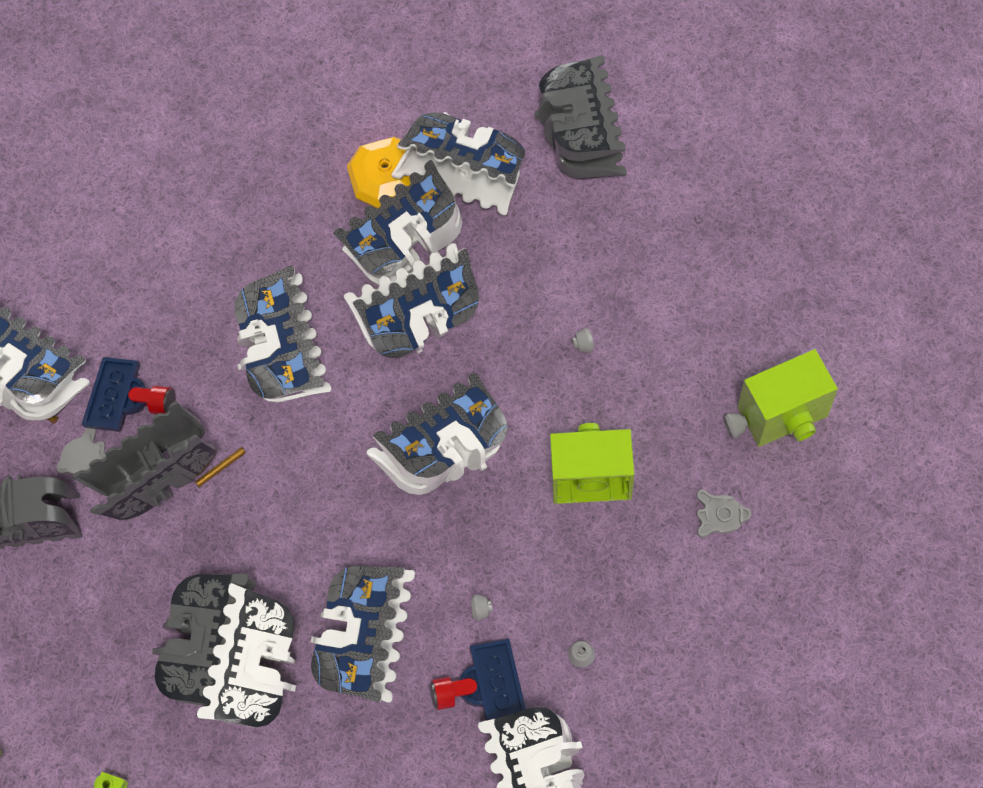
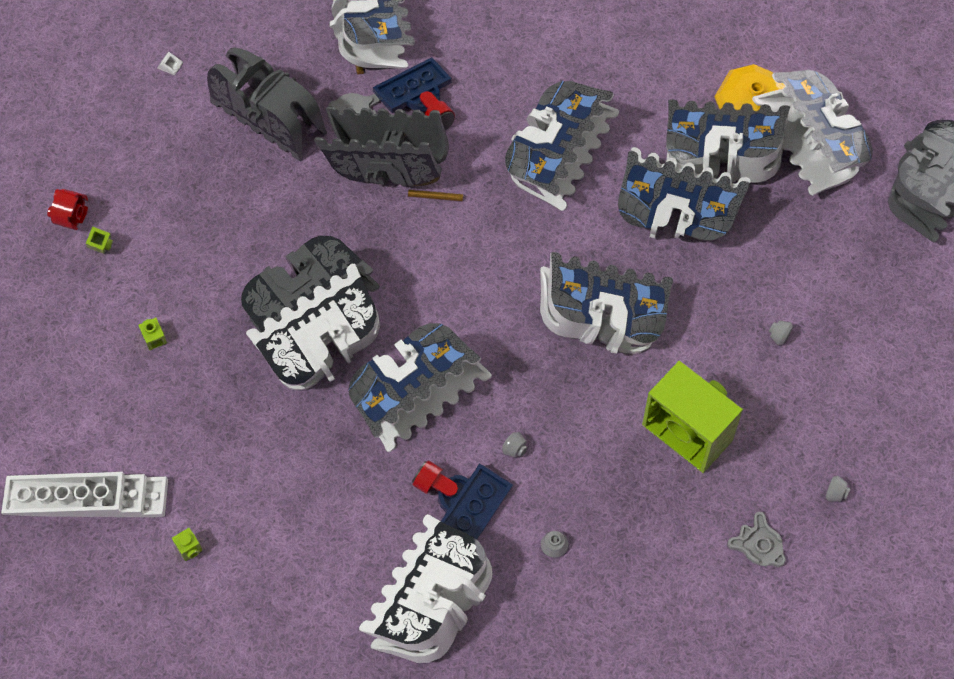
camera: 40 degrees right, 5 degrees down
(787, 399) = (894, 501): lime brick -> none

